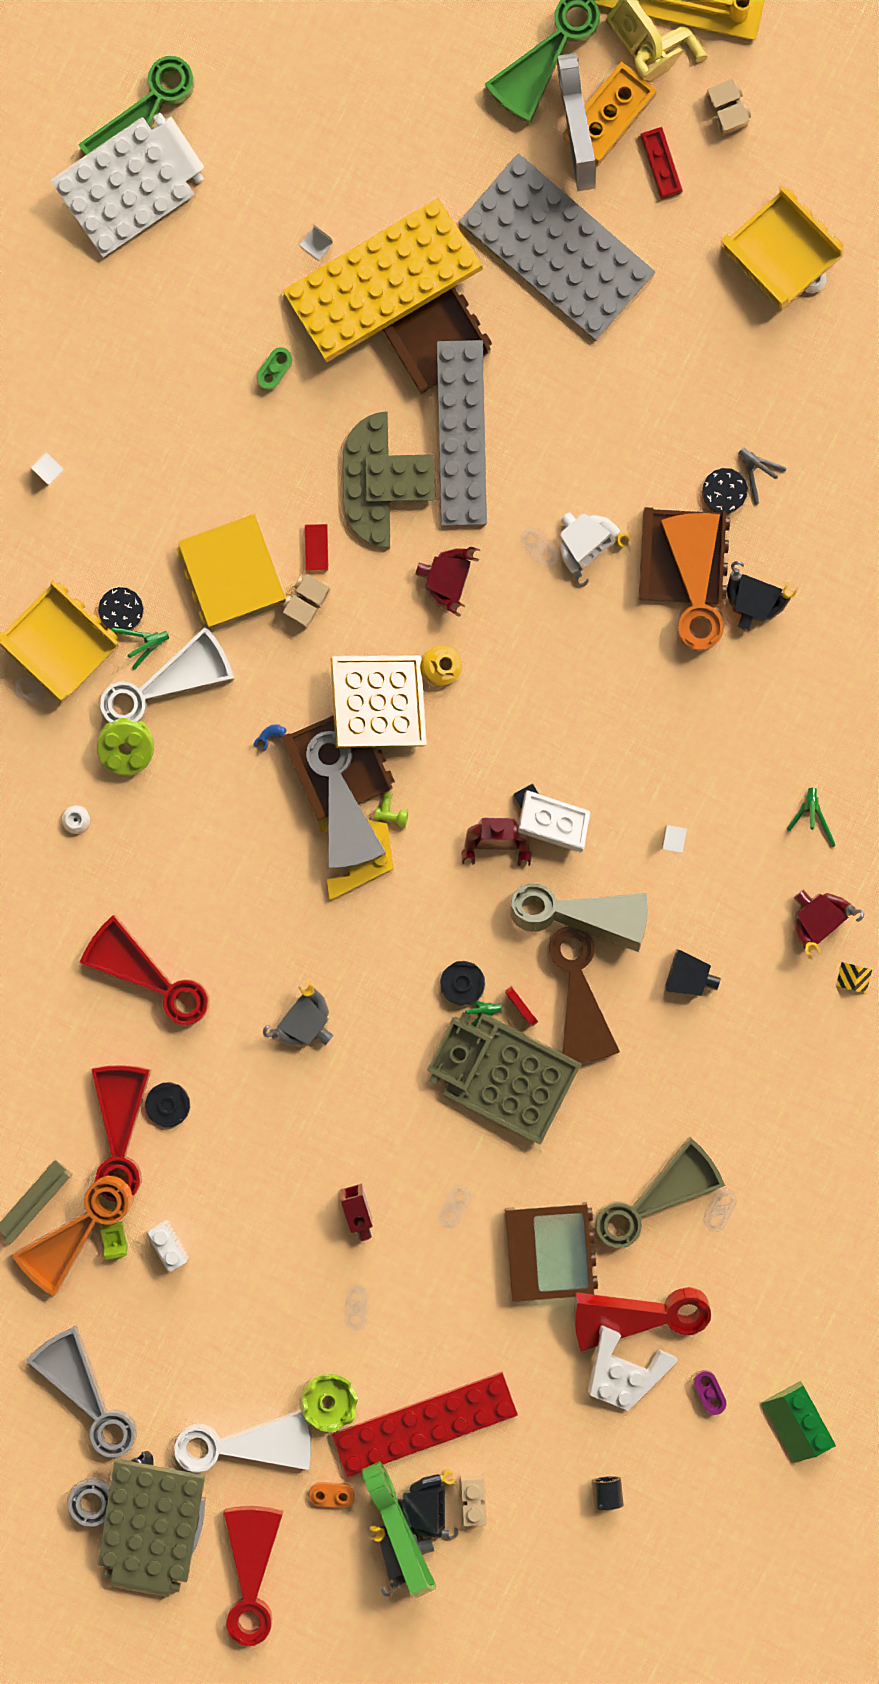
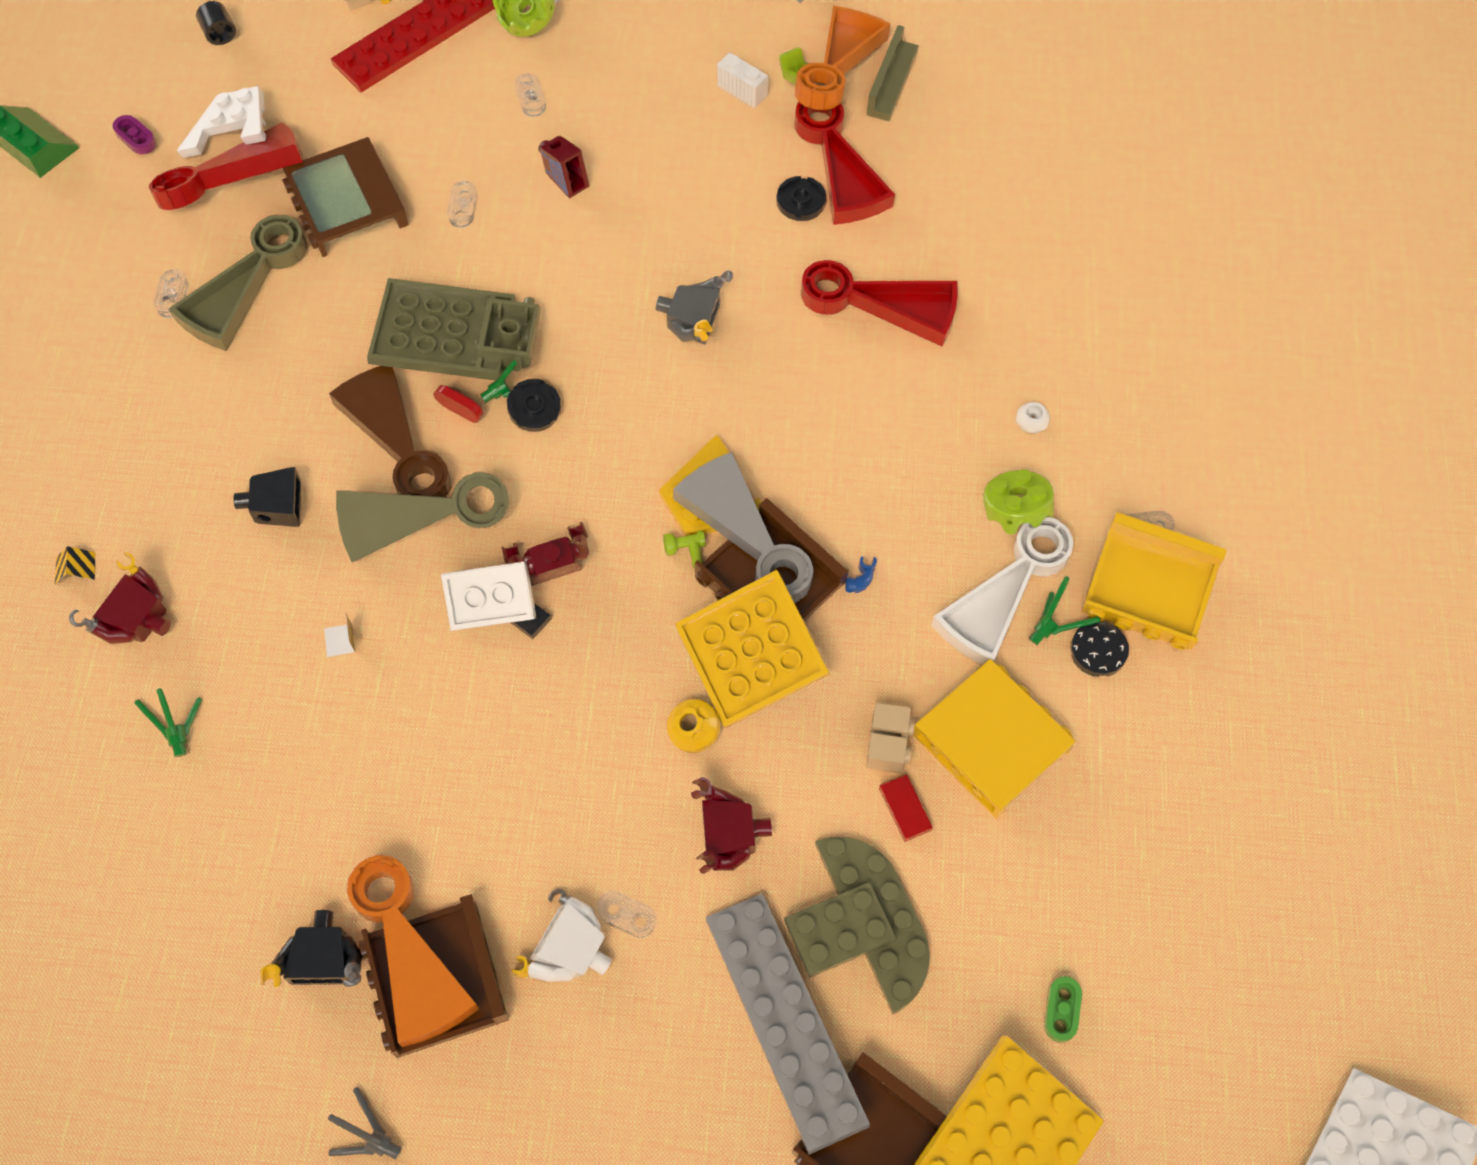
camera: 155 degrees right, 25 degrees down
(47, 468) = (1273, 772): white sticker -> none
(724, 490) = (405, 1087): black tile -> none

